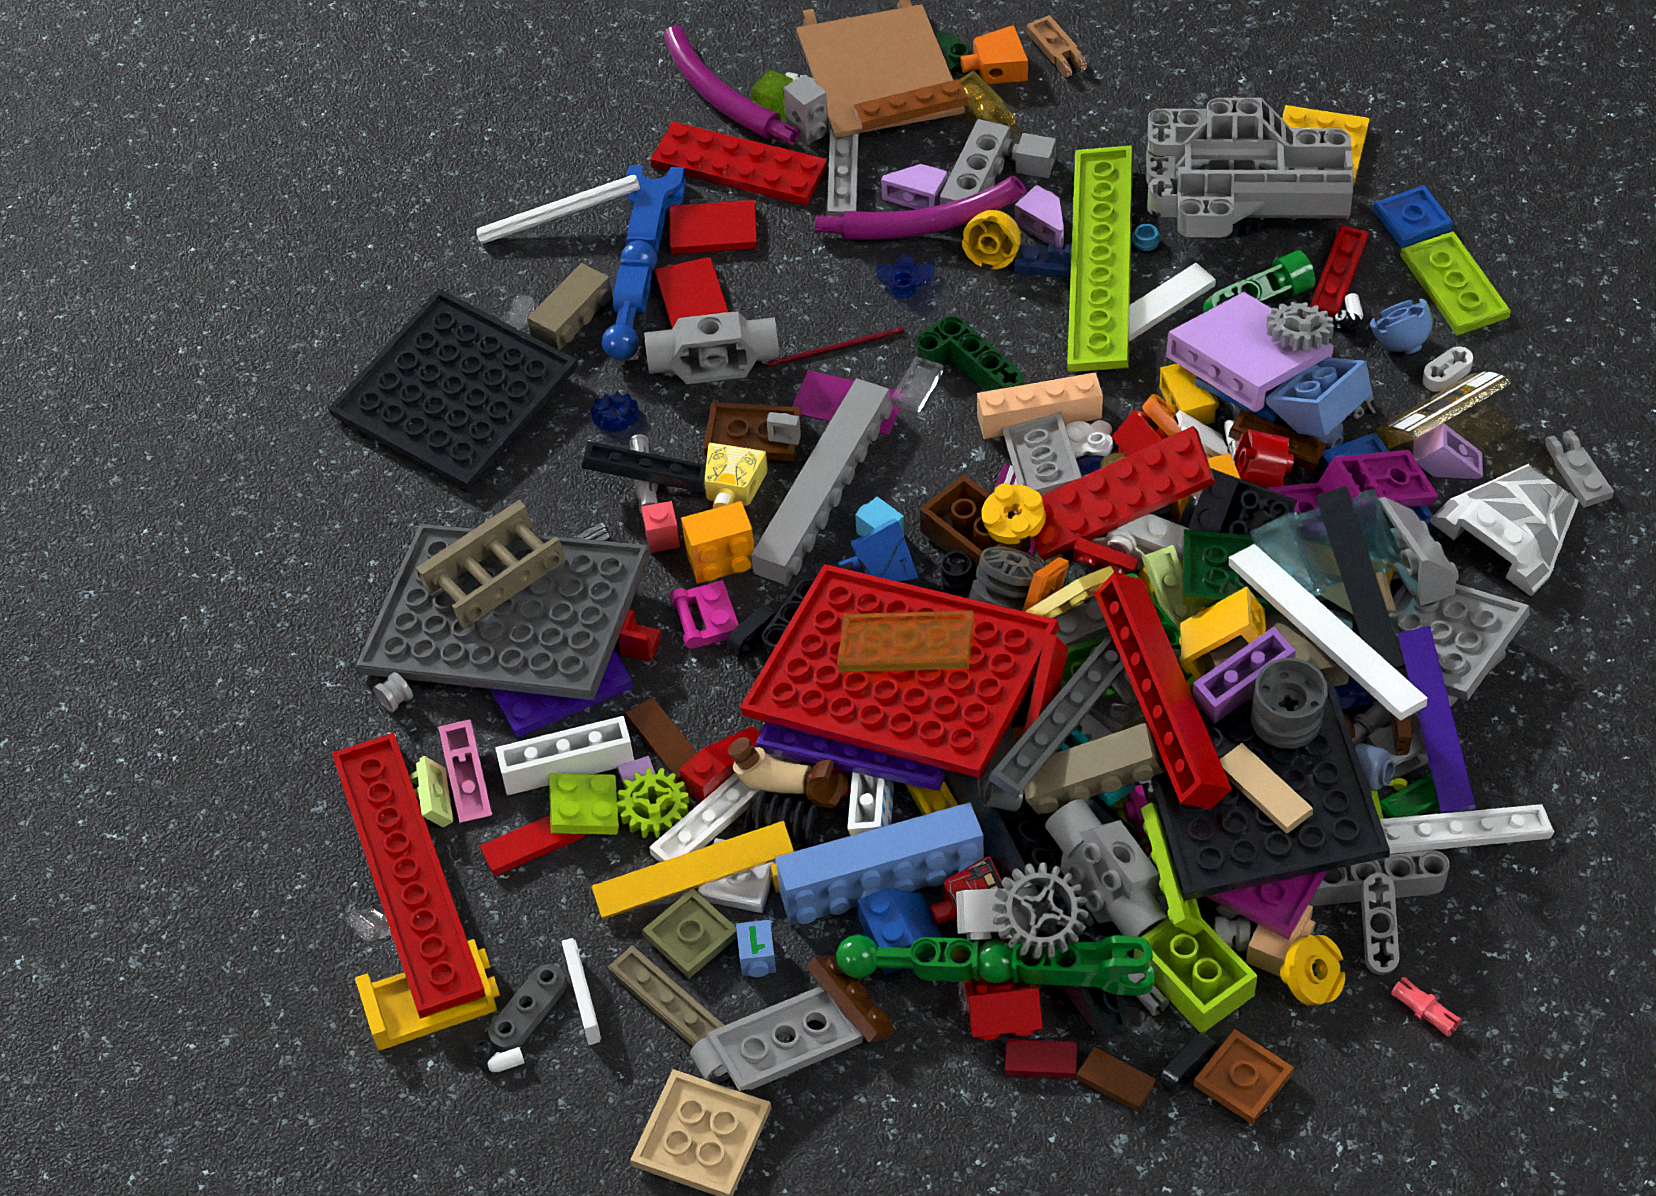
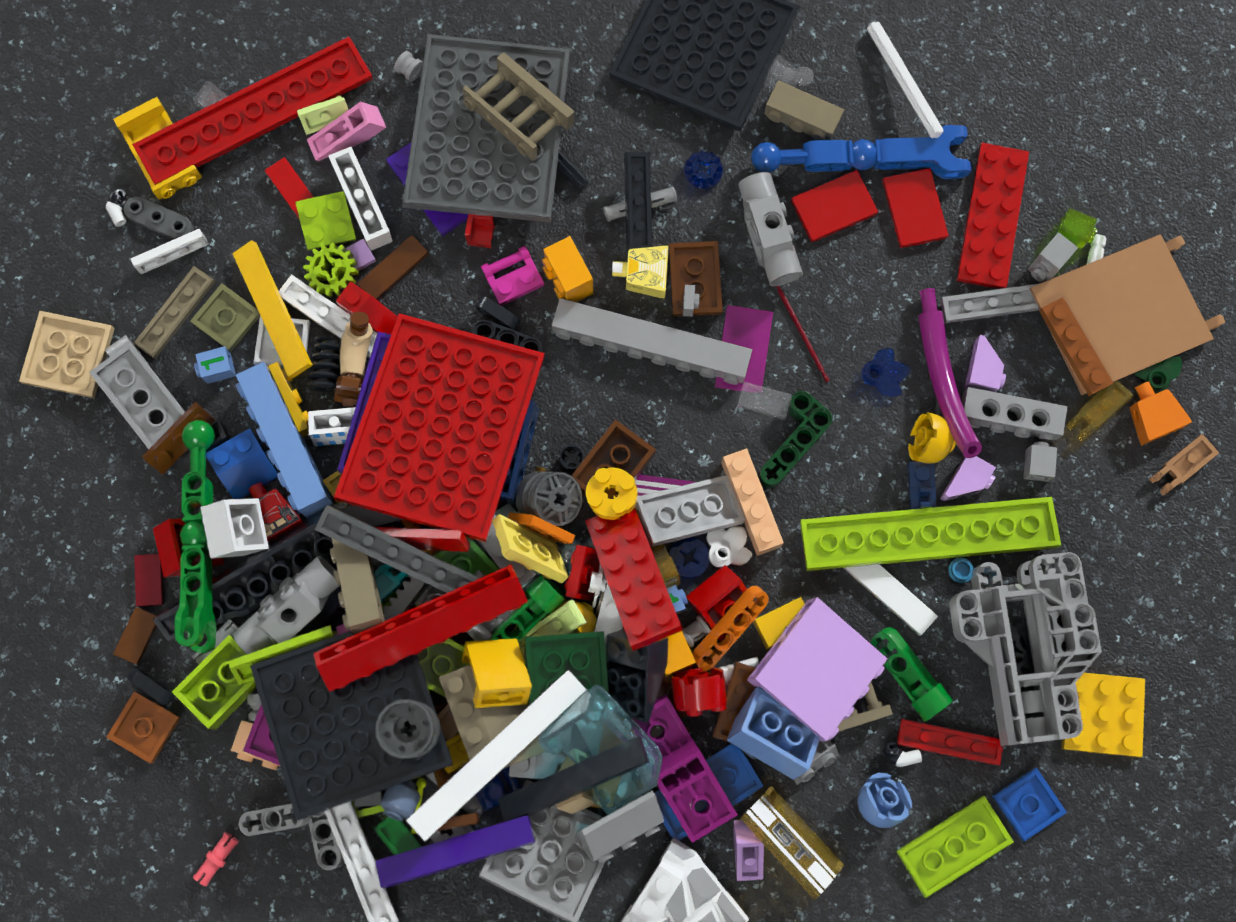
camera: 75 degrees right, 25 degrees up
(660, 526) = (585, 225): coral brick -> none
(721, 96) = (1069, 181): magenta animal -> none
(874, 515) = (612, 392): medium azure brick -> none
(882, 554) = (572, 398): blue torso -> none
(906, 641) = (459, 426): clear yellow tile -> none
(1026, 903) = (218, 545): light grey gear -> none
(1211, 439) = (732, 640): white piece -> none
(1234, 679) = (434, 691): medium lavender brick -> none
(1265, 788) = (343, 717): tan tile -> none
(1298, 970) = (226, 760): yellow plate -> none
(1299, 326) = (831, 699): light grey gear -> none
(1445, 366) = (855, 840): white beam -> none

